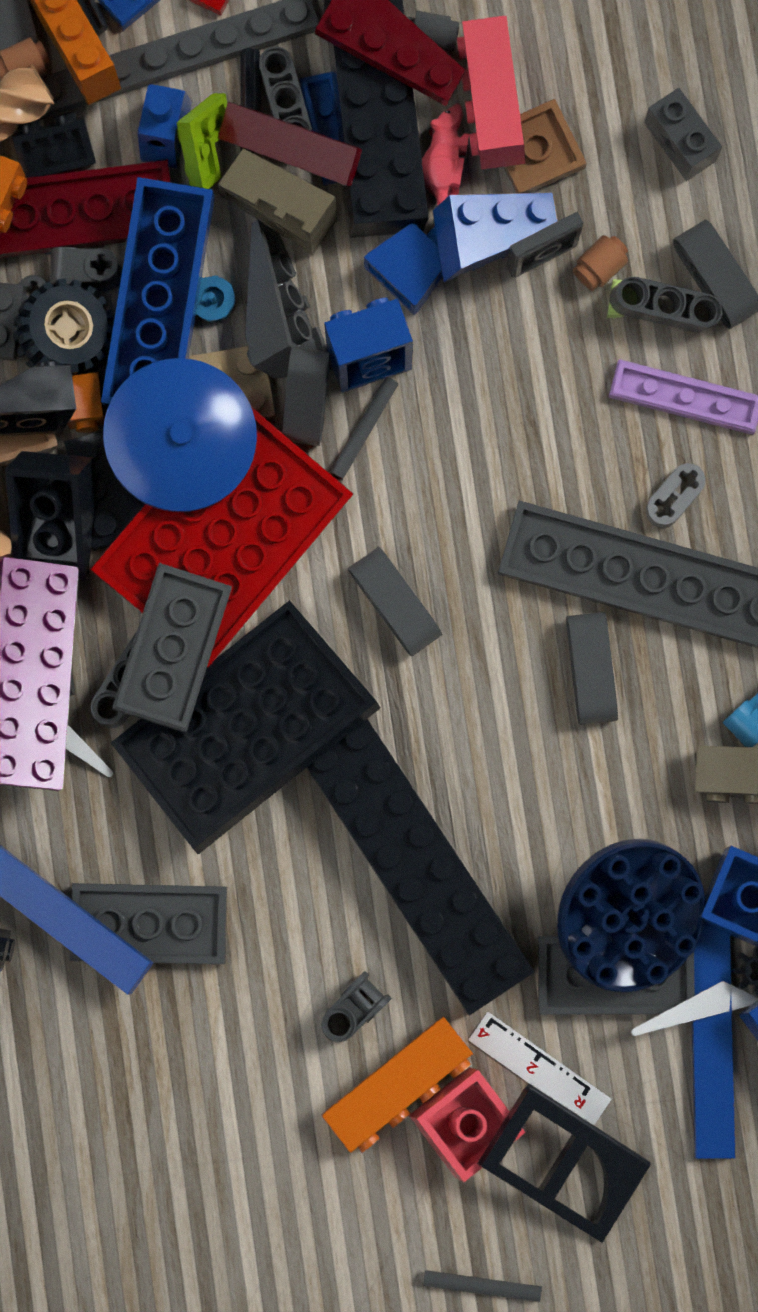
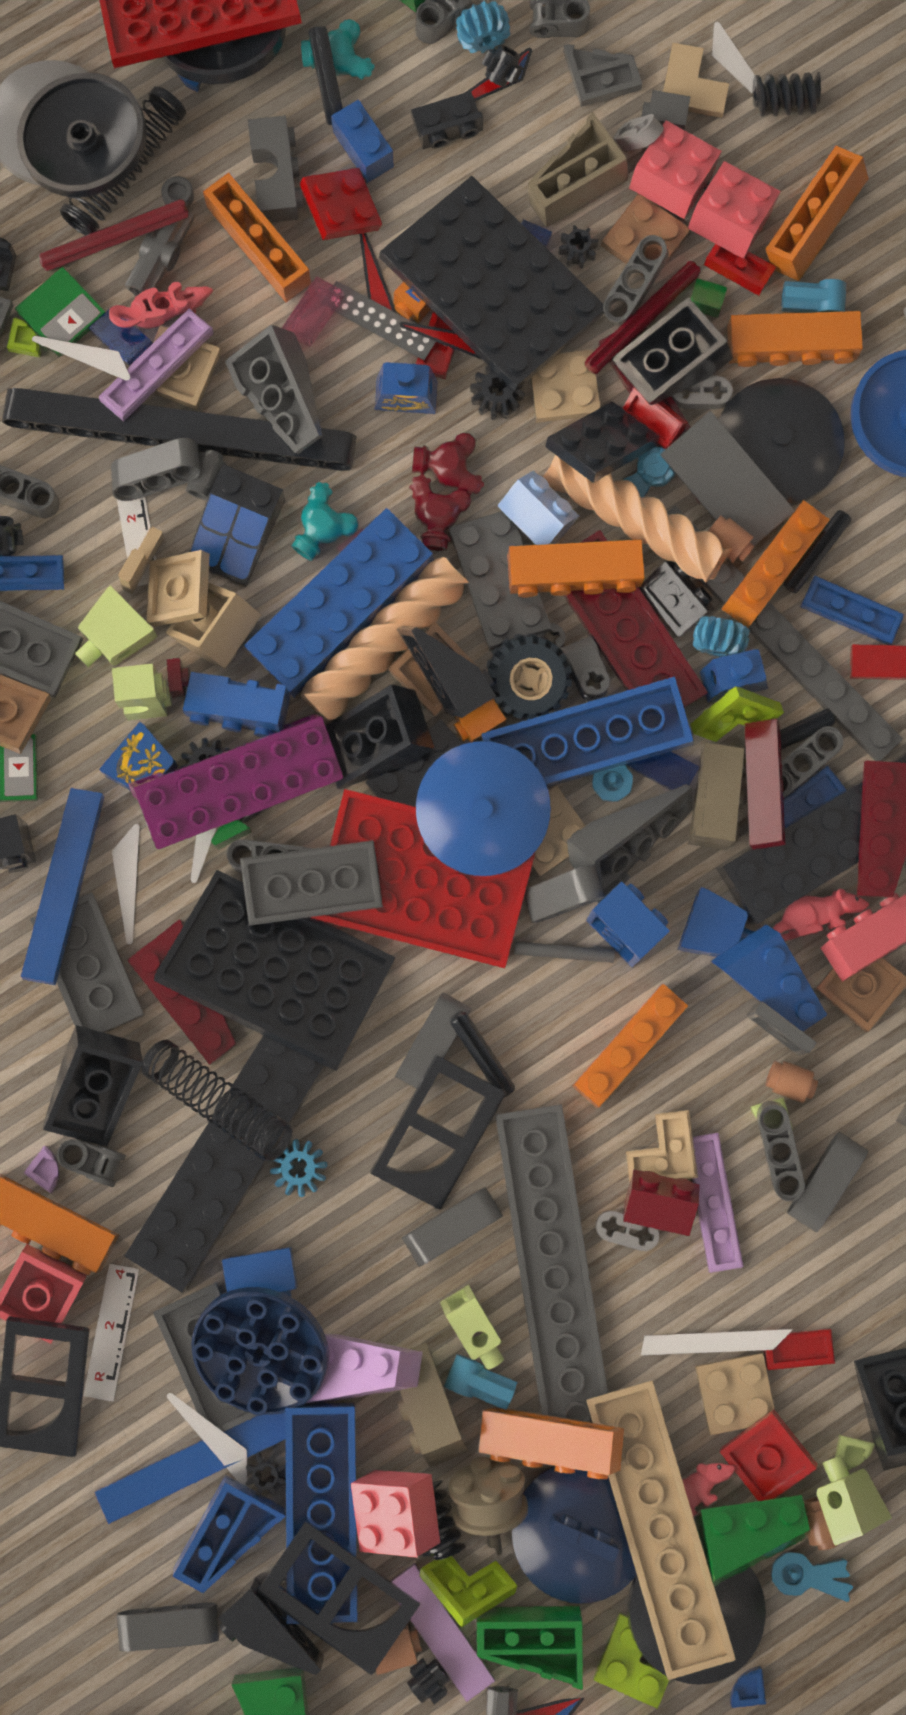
camera: 60 degrees right, 0 degrees up
(61, 838) = (125, 865): none -> white sticker
(79, 711) = (229, 833): none -> green slope
(116, 119) = (720, 636): none -> dark azure gear
(227, 239) = (666, 770): none -> clear blue tile
(259, 833) = (201, 1025): none -> dark red wing
(276, 971) = (92, 1085): none -> black slope
(285, 874) = (169, 1066): none -> black piece
(339, 1064) = (44, 1170): none -> lavender tile
(430, 555) = (481, 1052): none -> black axle
(467, 786) = (310, 1169): none -> dark azure gear
(491, 404) = (630, 1045): none -> orange brick
(539, 663) = (437, 1182): none -> black window
(546, 882) = (263, 1269): none -> blue brick
(625, 417) = (676, 1149): none -> tan tile
(663, 445) = (661, 1202): none -> dark red brick
(698, 815) = (366, 1368): none -> lavender wedge
(702, 691) = (466, 1319): none -> yellowish green torso

